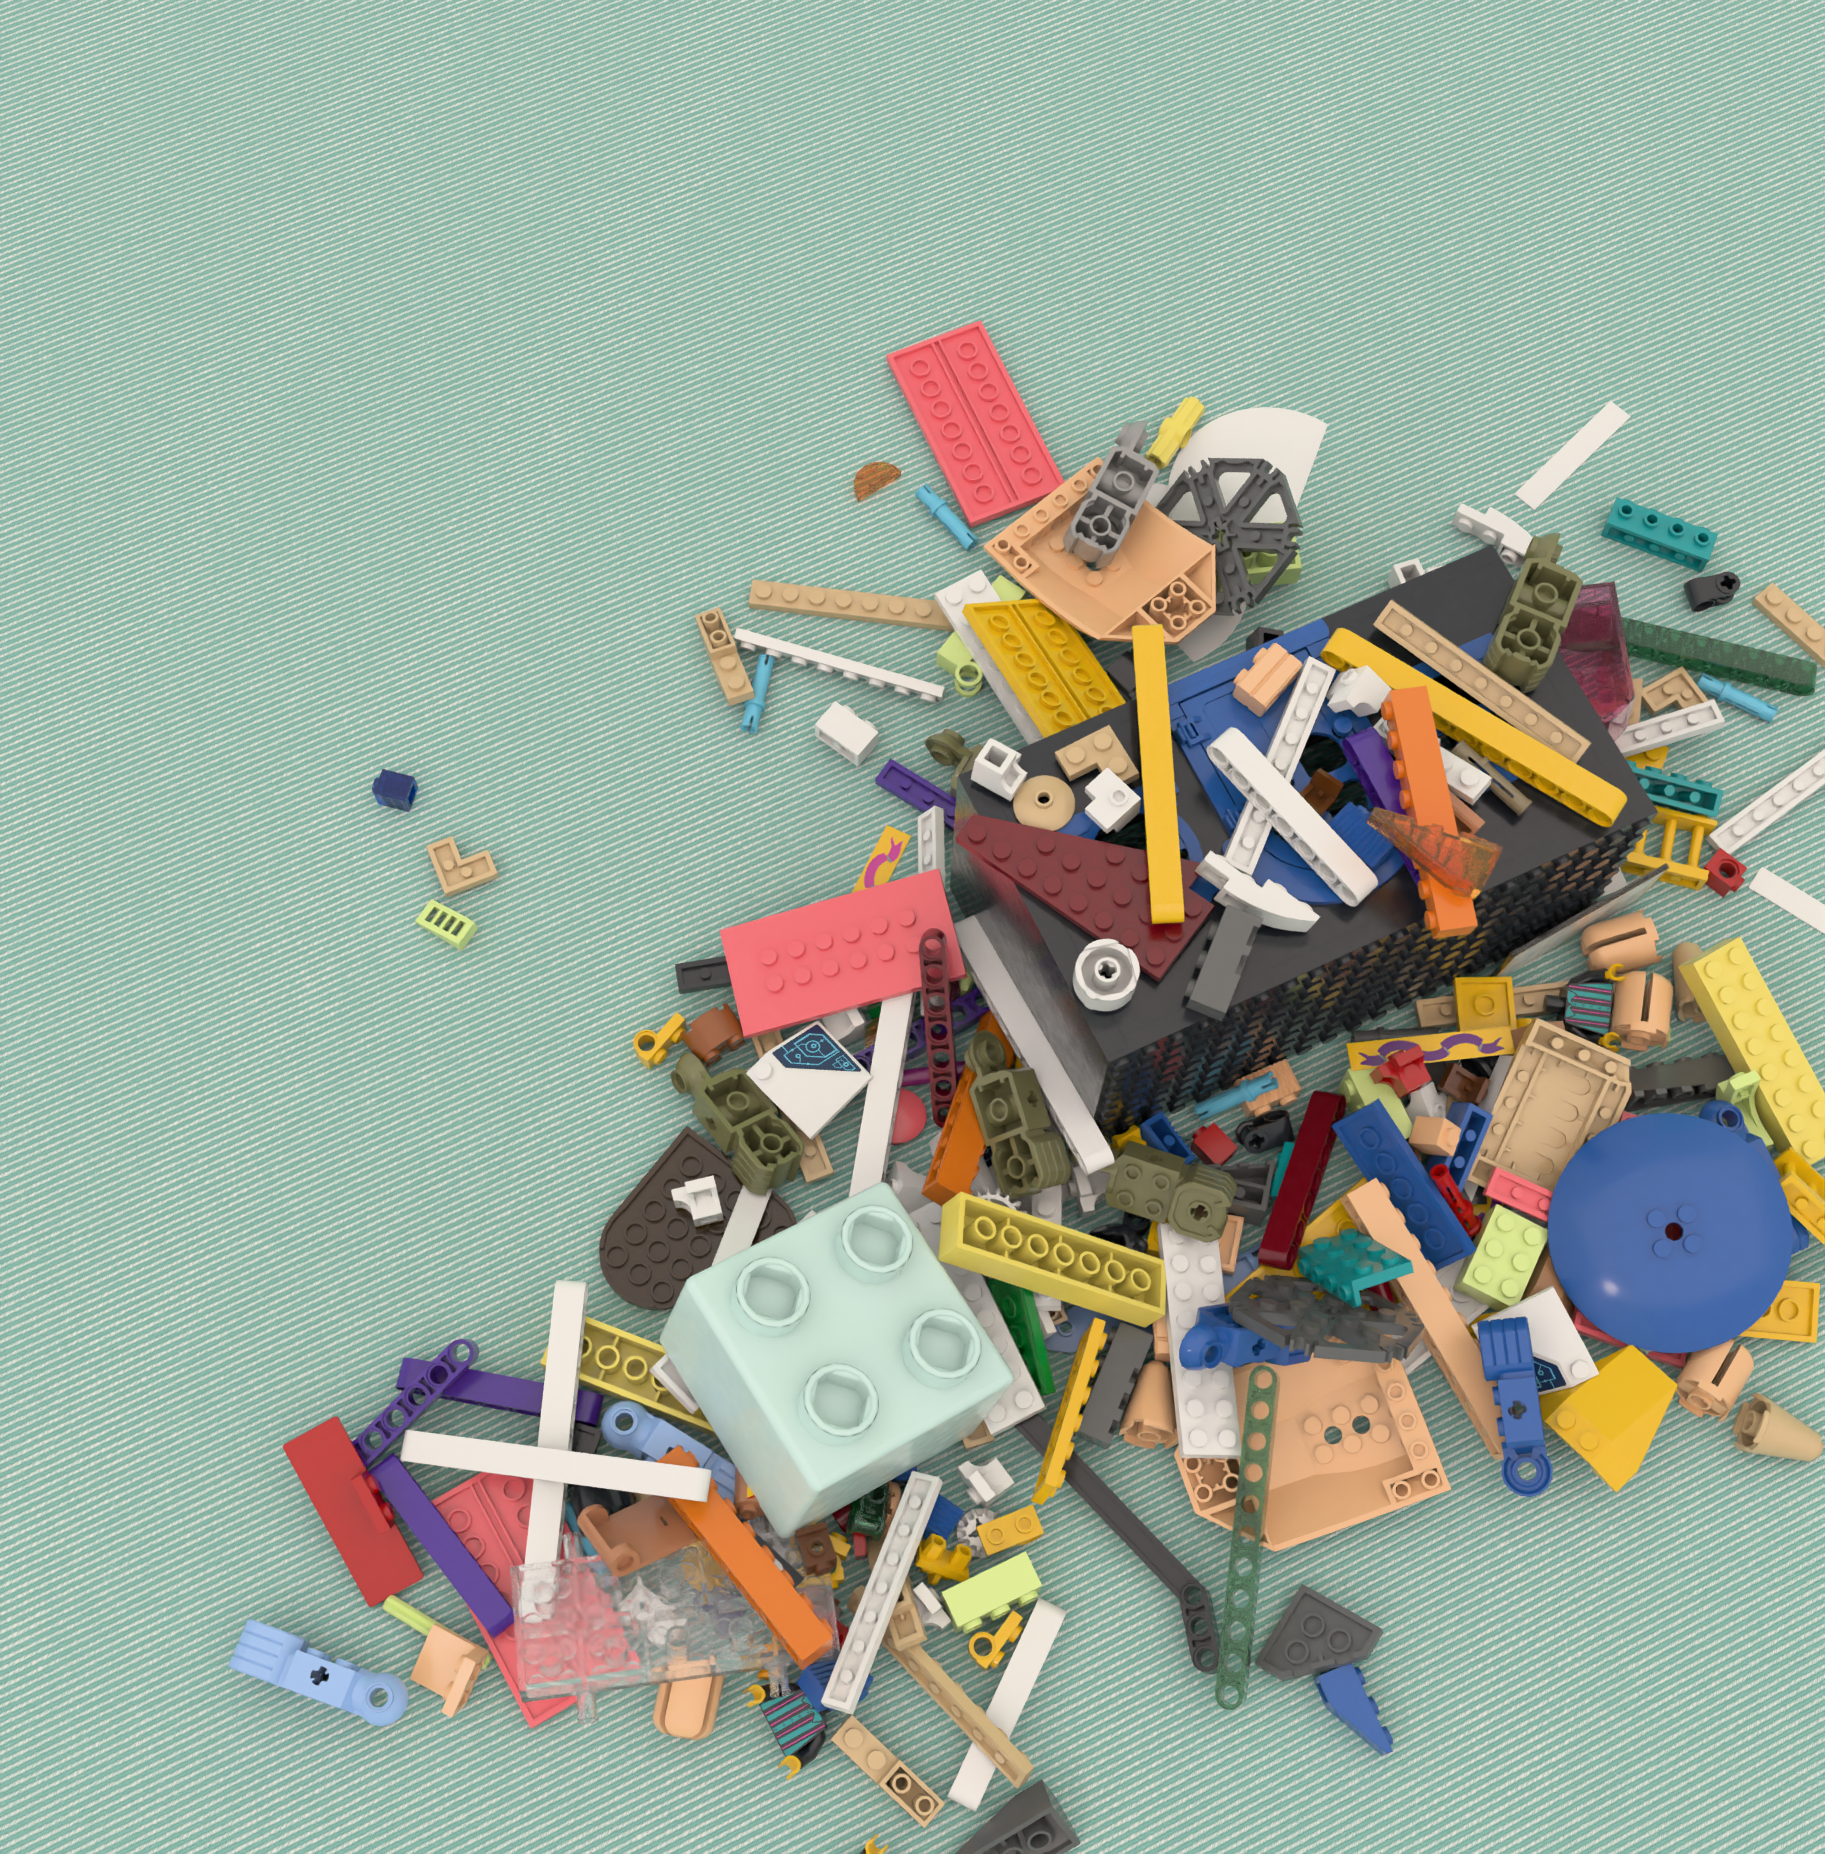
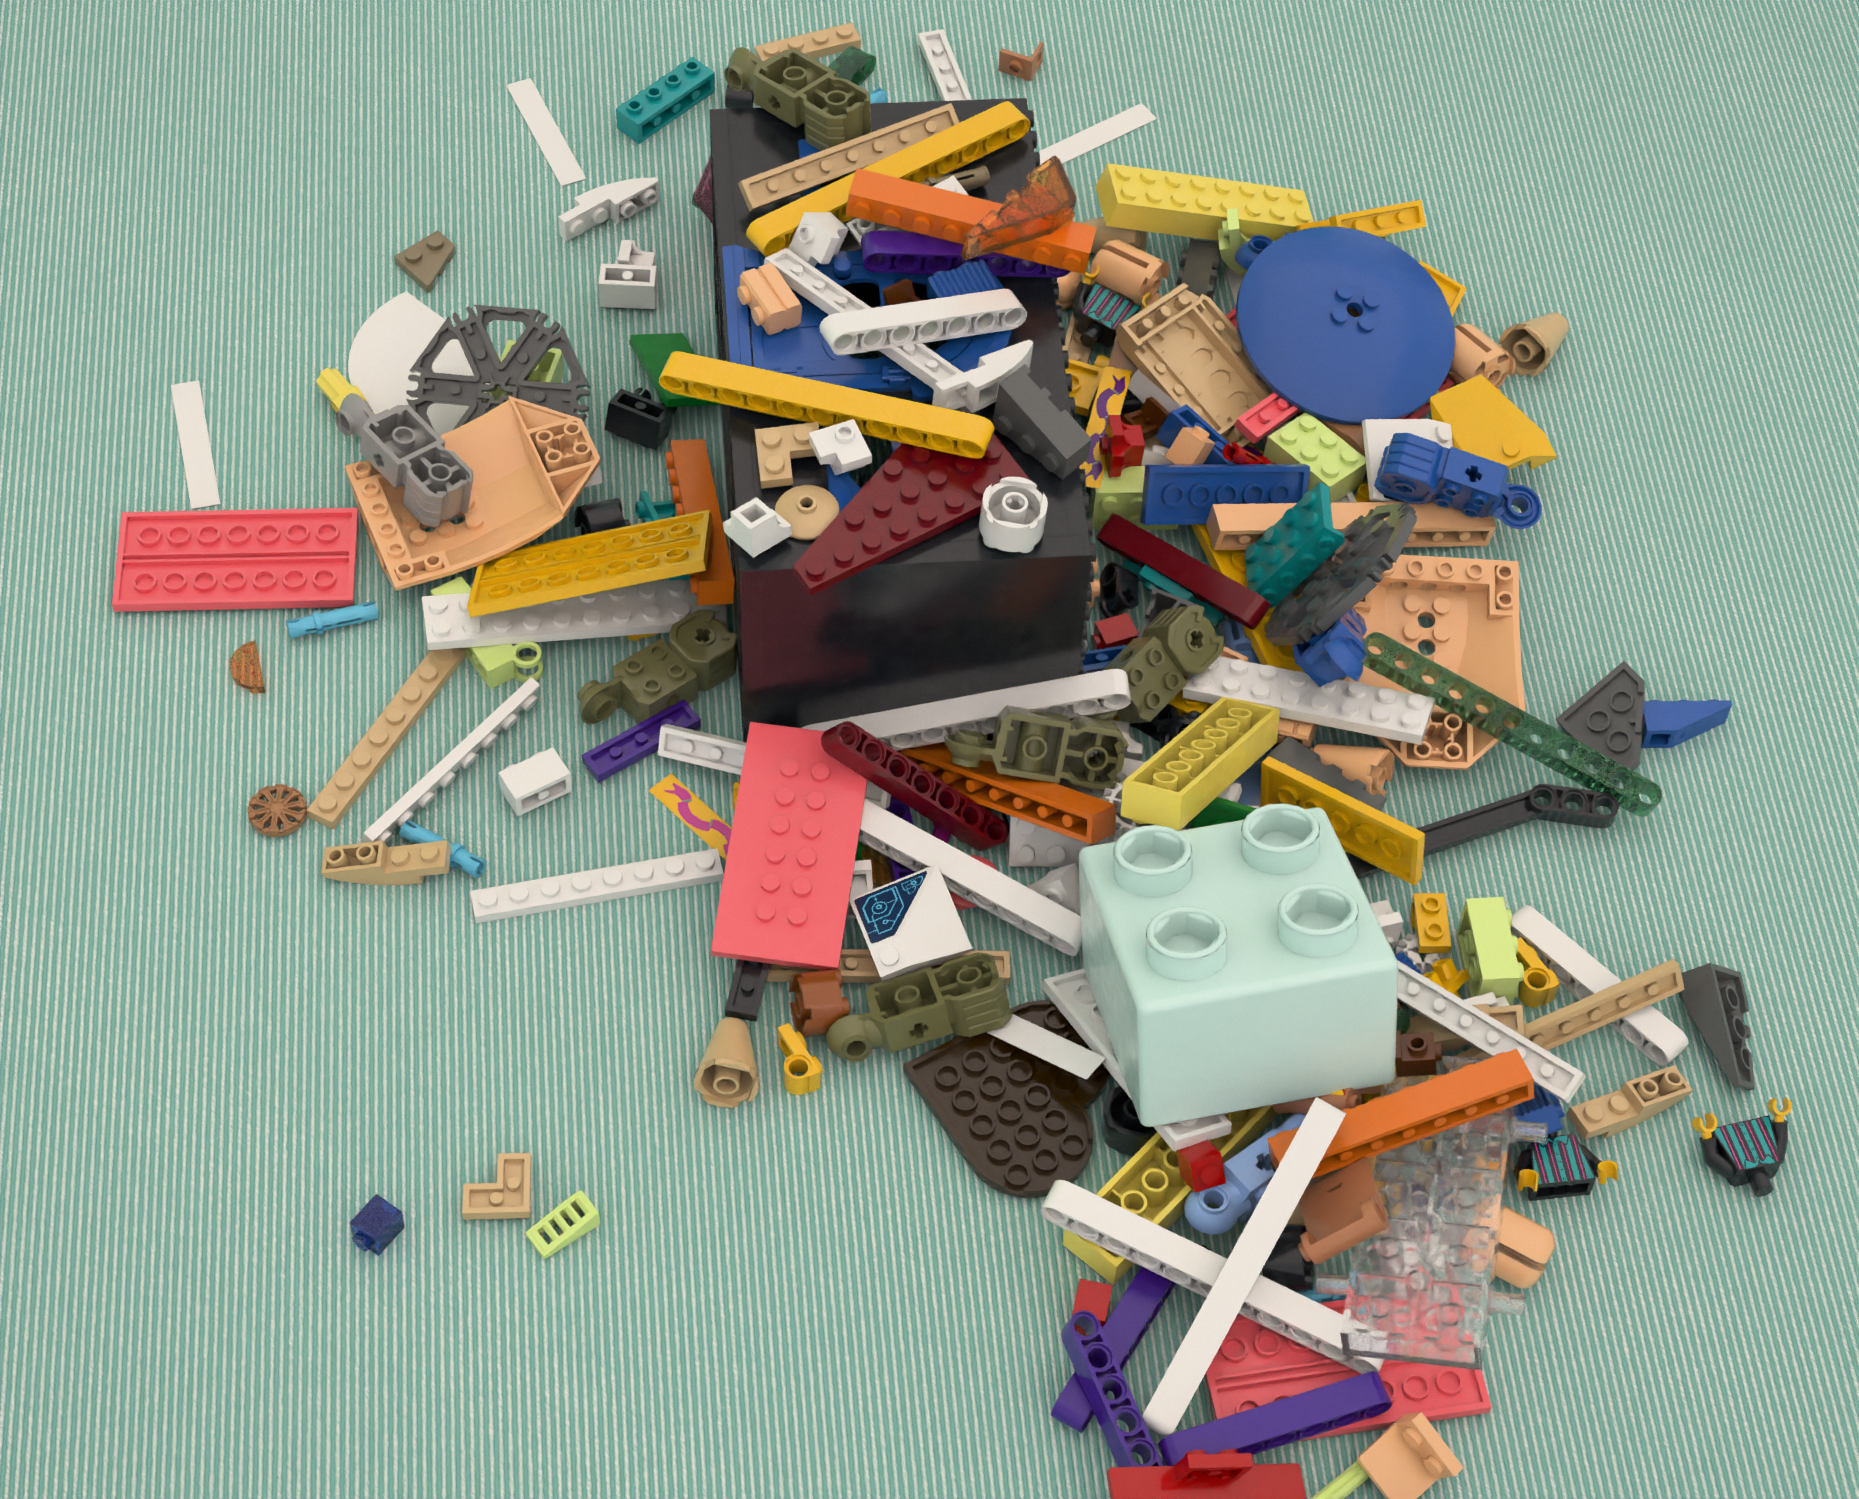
camera: 70 degrees left, 15 degrees down
(510, 1357) = (1093, 1298): none -> red brick
(634, 987) = (728, 1066): none -> tan cone
(647, 1400) = (1201, 1166): none -> red brick
(700, 1200) = (997, 1068): white brick -> none
(745, 559) = (277, 810): none -> medium nougat wheel
(770, 818) = (596, 885): none -> white plate
(1083, 342) = (195, 444): none -> white sticker
(1369, 424) = (426, 259): none -> dark tan wing

